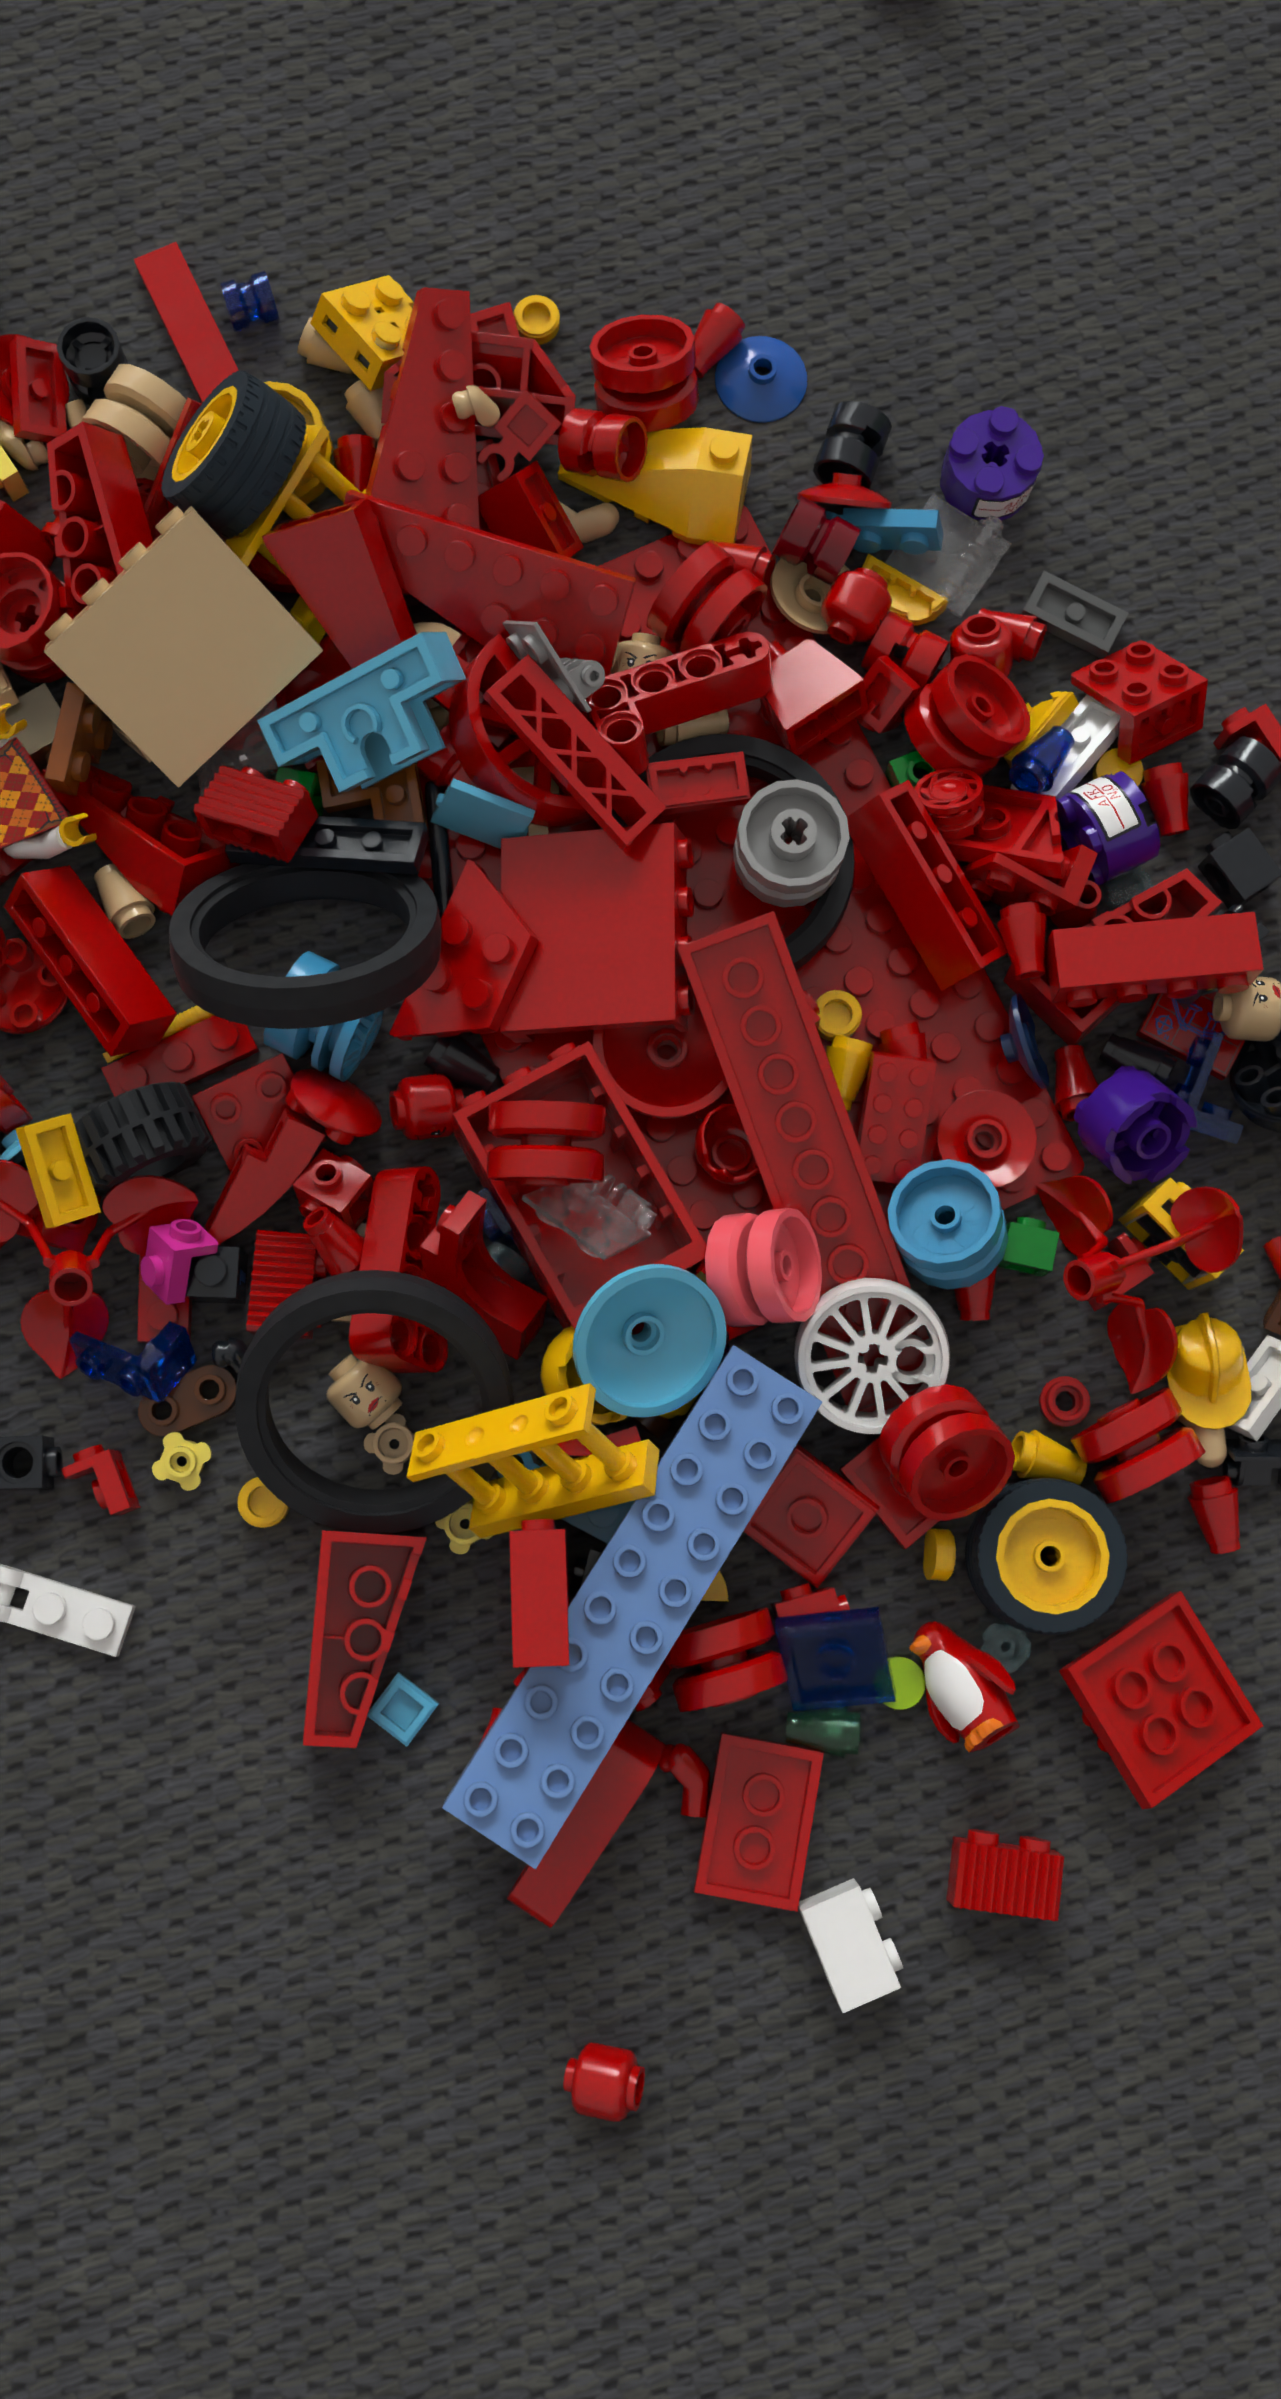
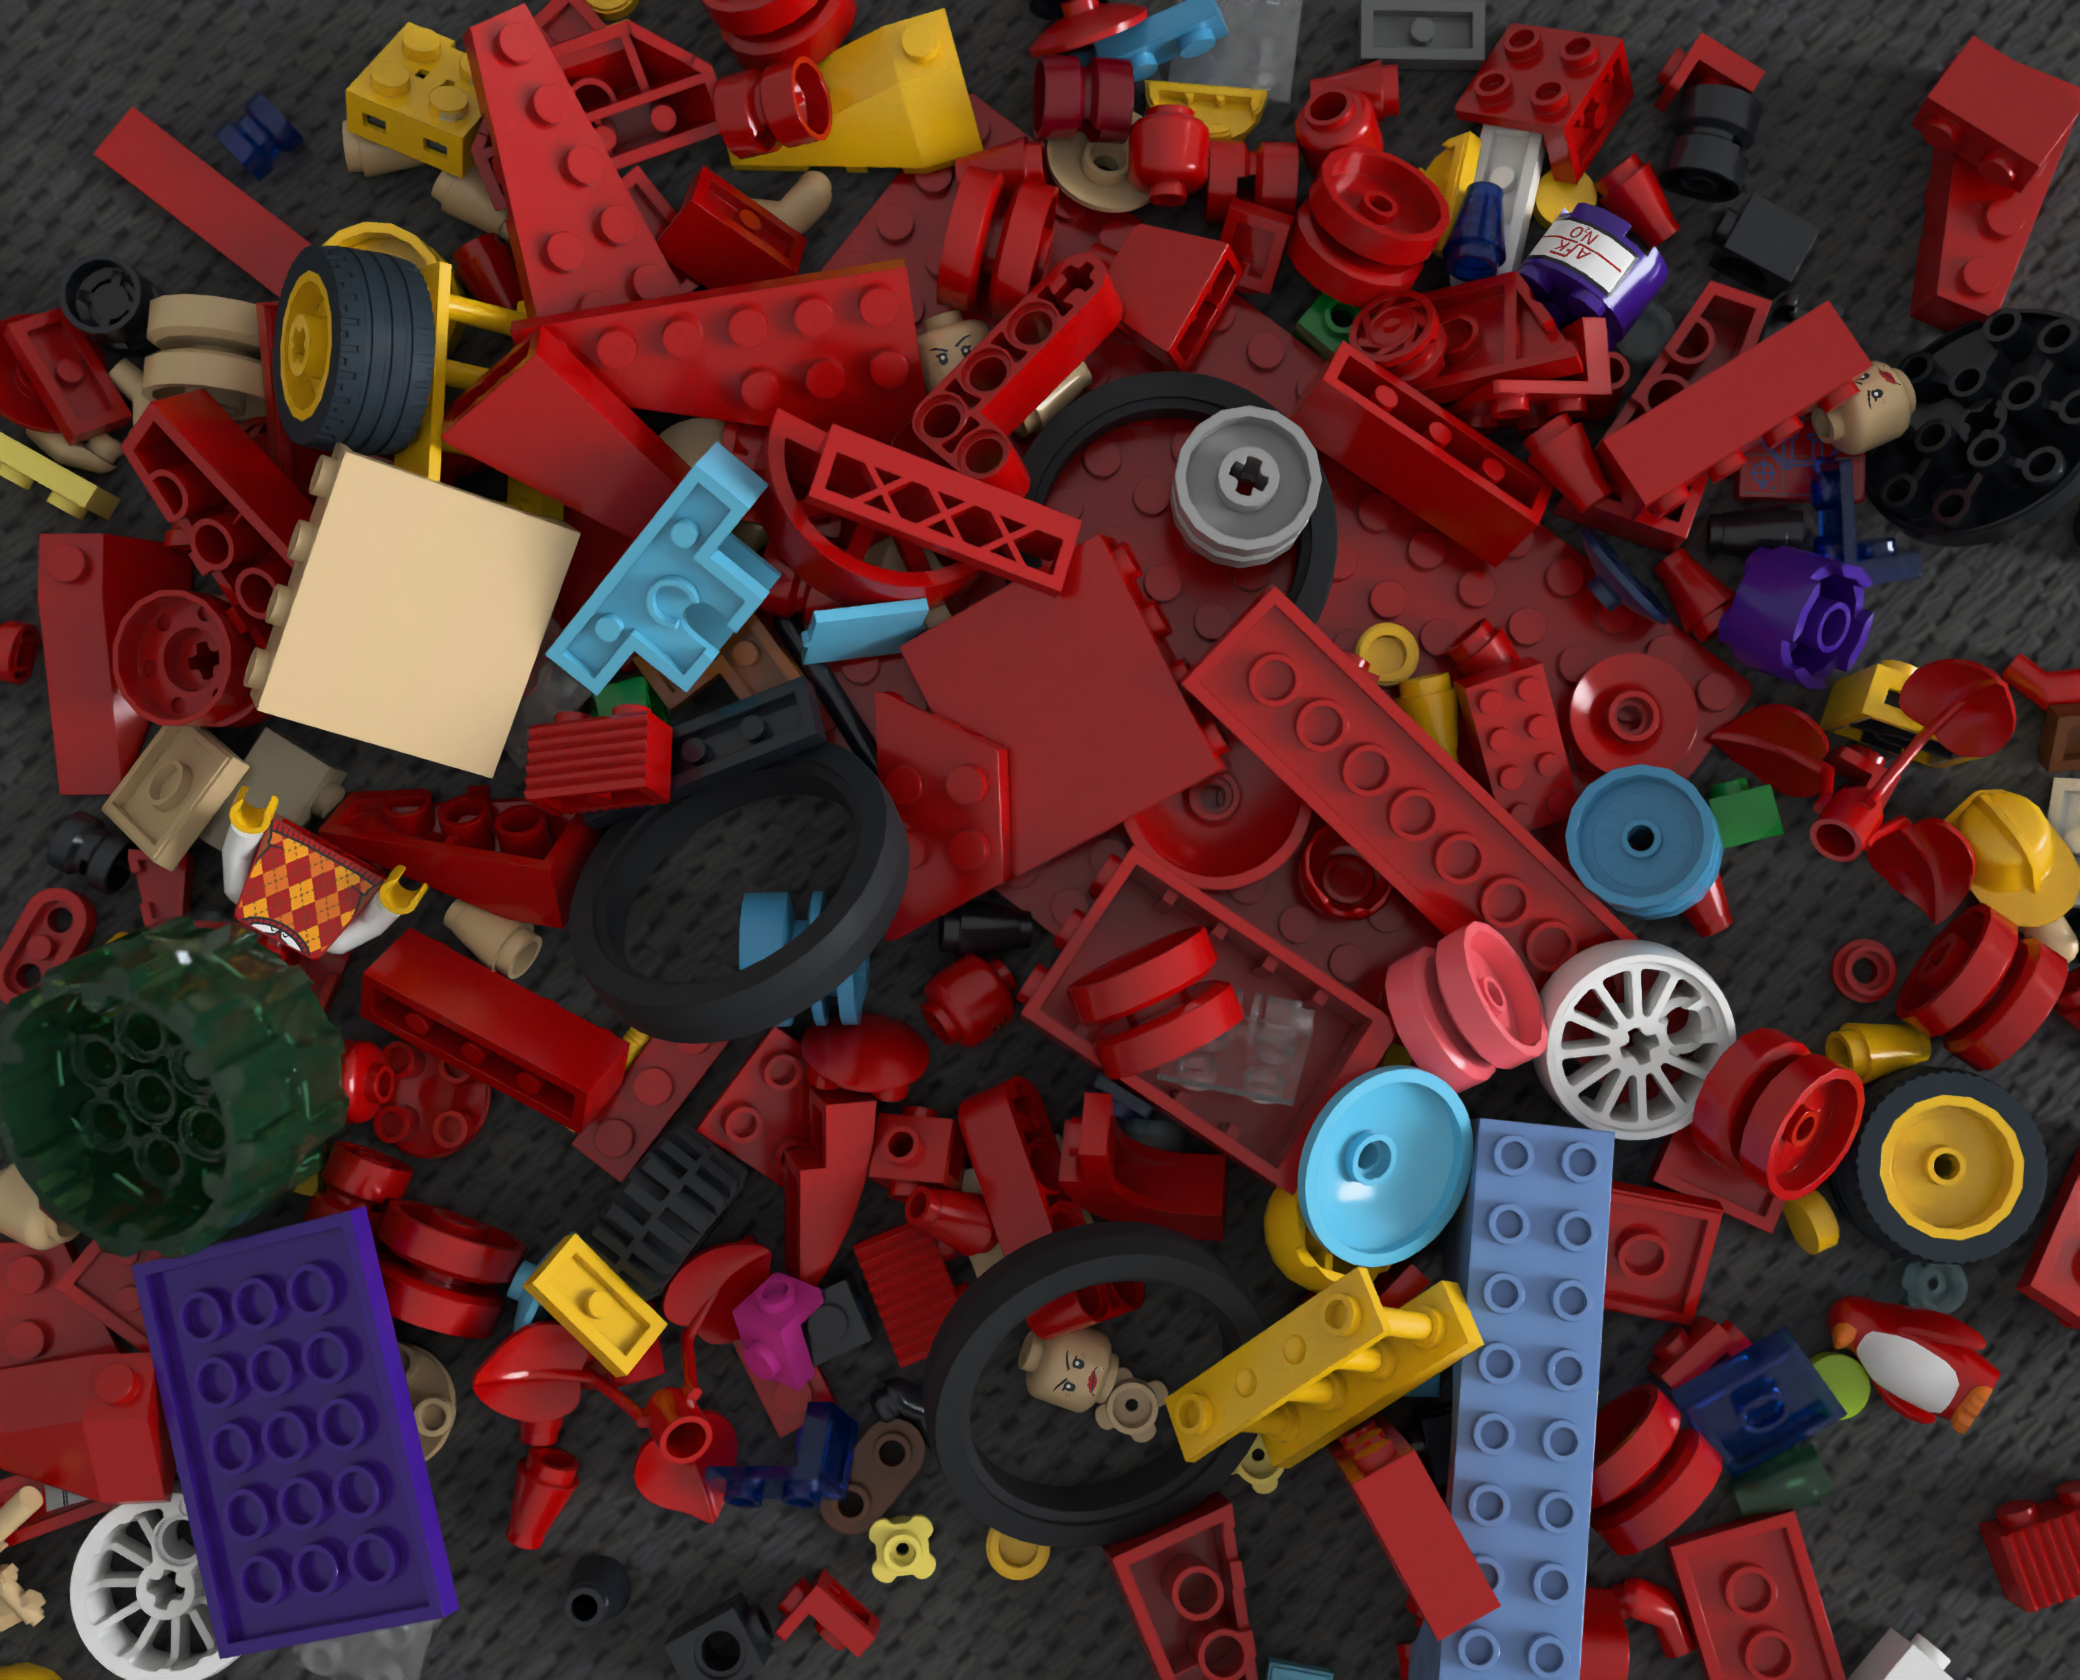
camera: 15 degrees left, 5 degrees up
(78, 741) = (339, 772): dark orange plate -> none
(477, 403) = (604, 136): tan arm -> none
(525, 430) = (673, 138): red plate -> none
(573, 676) = (887, 416): light grey hinge -> none
(700, 782) = (1098, 465): red plate -> none

